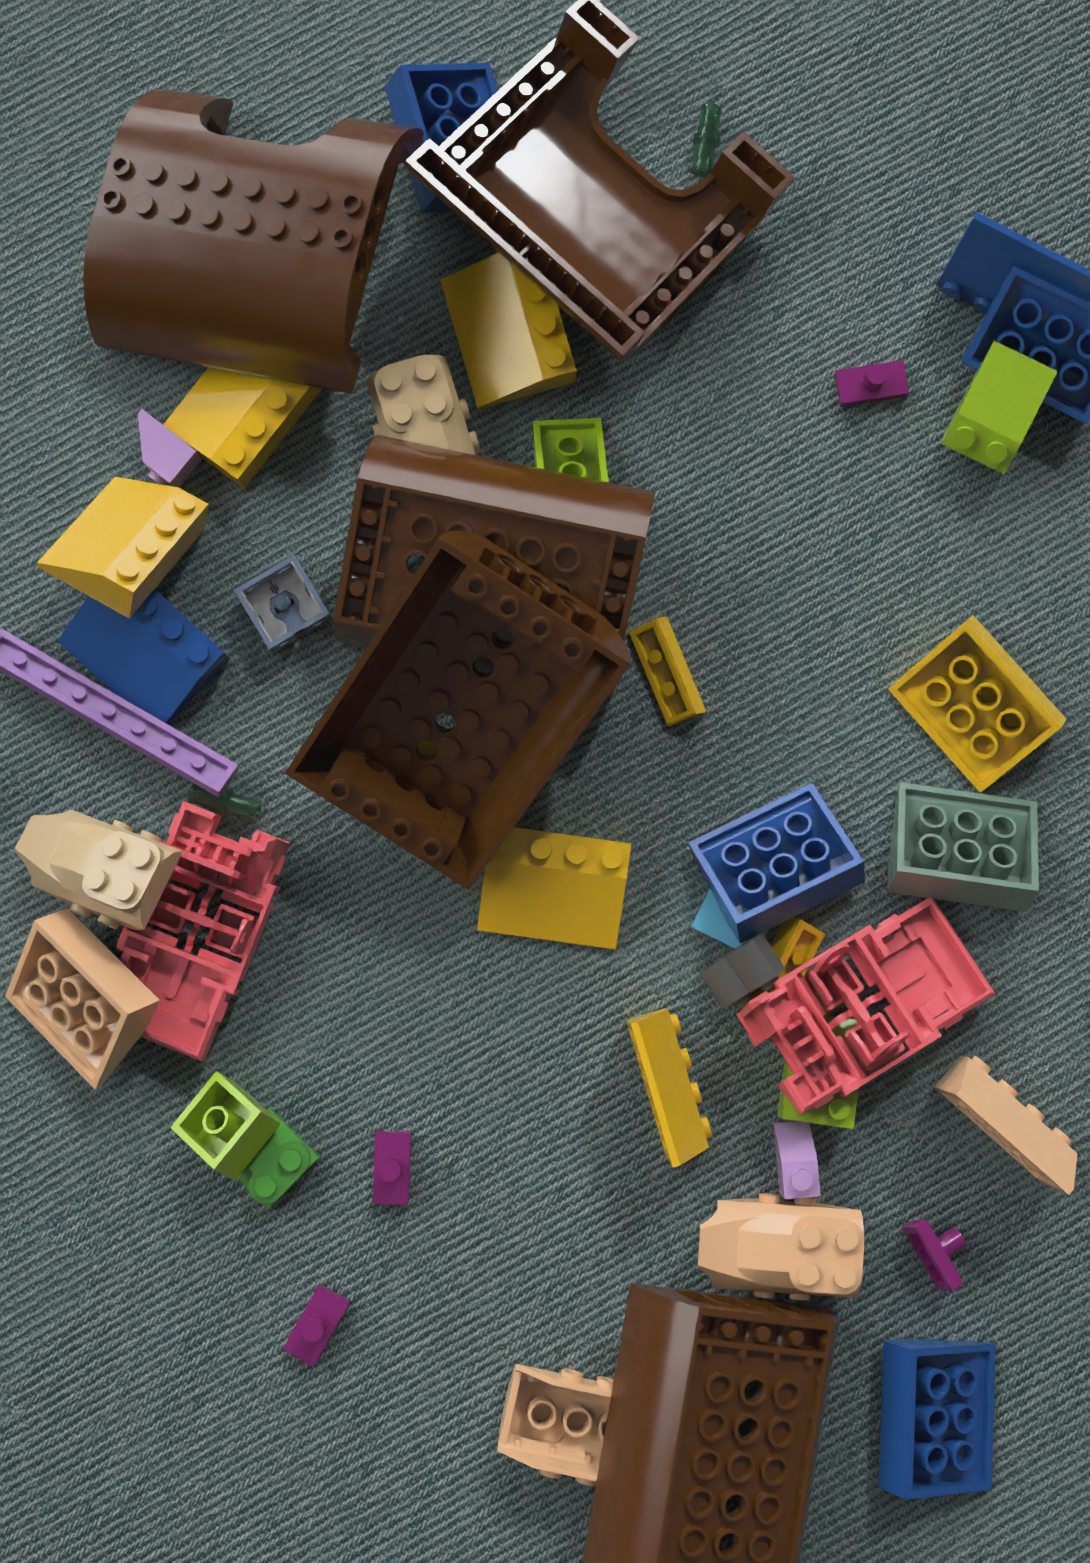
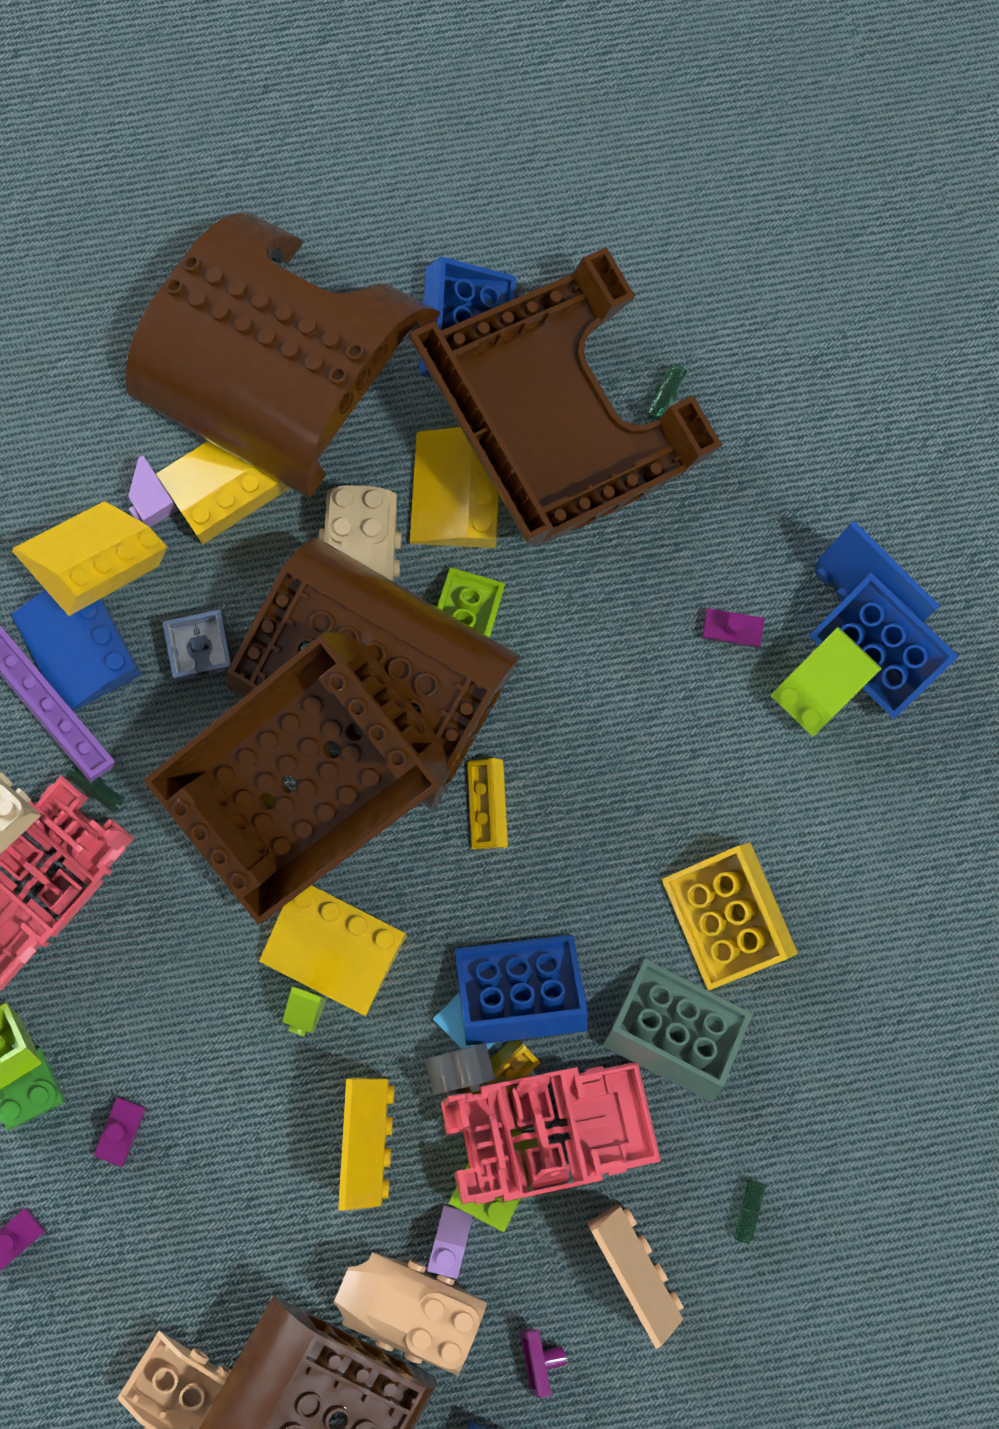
camera: 20 degrees right, 5 degrees down
(548, 968) = (303, 1011): none -> lime slope

